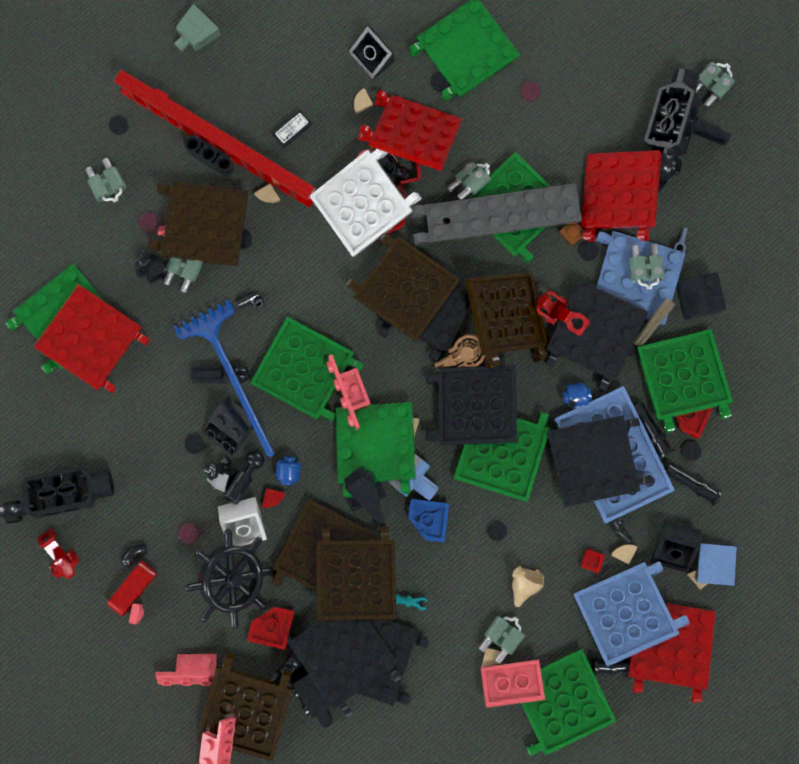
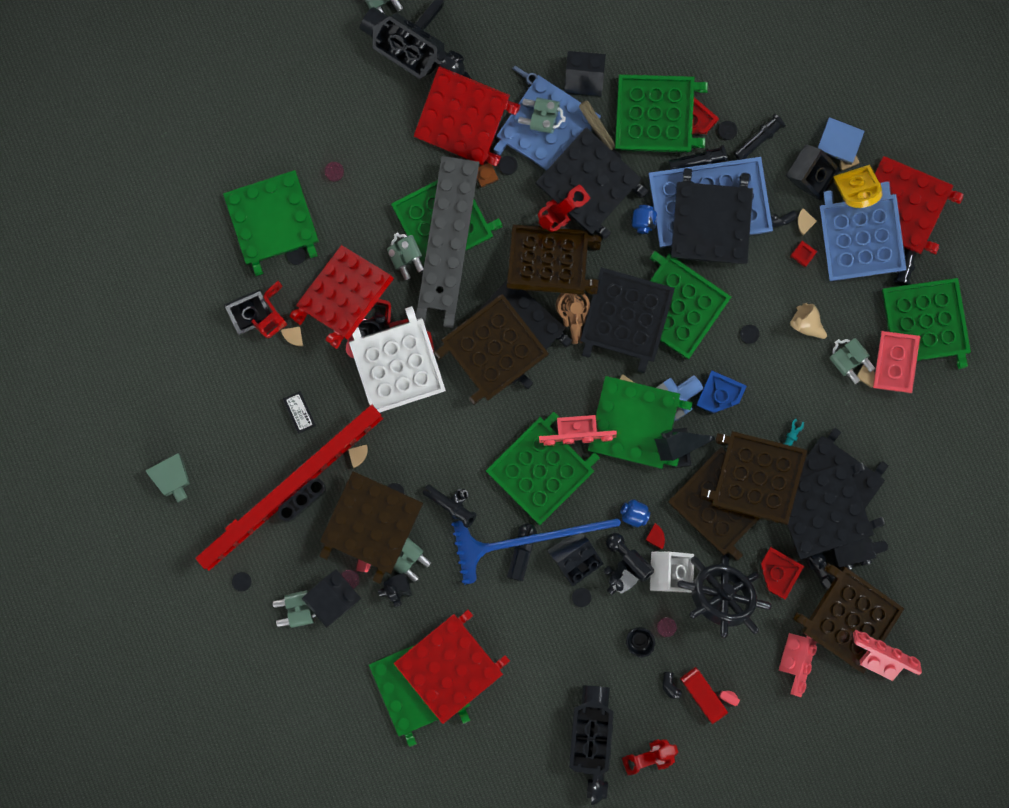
camera: 75 degrees left, 0 degrees up
(123, 208) = (331, 598): none -> black slope
(165, 512) = (640, 642): none -> black hair
(240, 299) = (456, 509): none -> black pin
(372, 78) = (274, 318): none -> red piece
(676, 594) = (857, 185): none -> yellow tile

